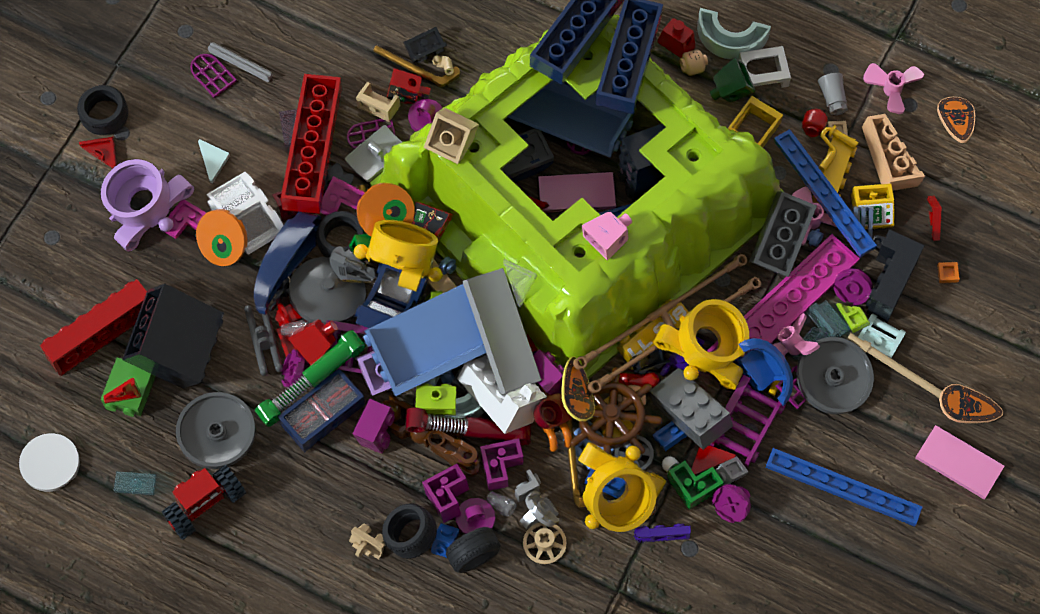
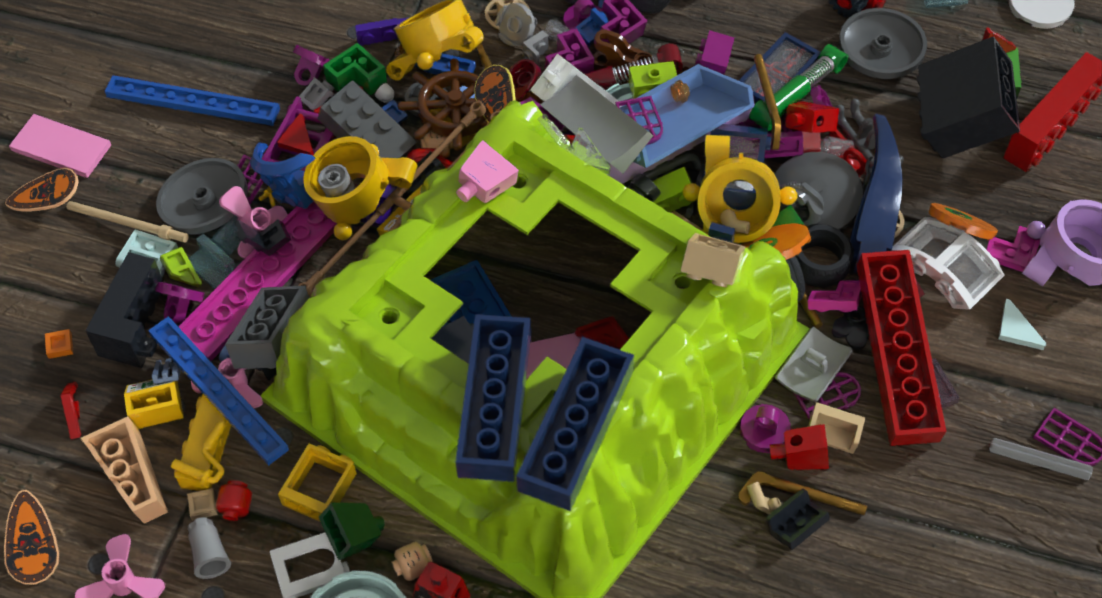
camera: 170 degrees right, 10 degrees down
(350, 317) = (770, 101): none -> pearl gold piece
(412, 235) = (729, 219): none -> tan arm
(420, 365) = (680, 91): none -> clear orange plate
(425, 222) = (721, 232): none -> dark blue tile
(457, 340) = (649, 126): none -> magenta window
(472, 493) = (592, 25): none -> blue bracket
(544, 280) = (553, 131): none -> clear tile
(721, 328) = (335, 181): none -> light grey wheel
(751, 414) = (296, 137): none -> red tile
(778, 319) = (268, 240): none -> black bracket

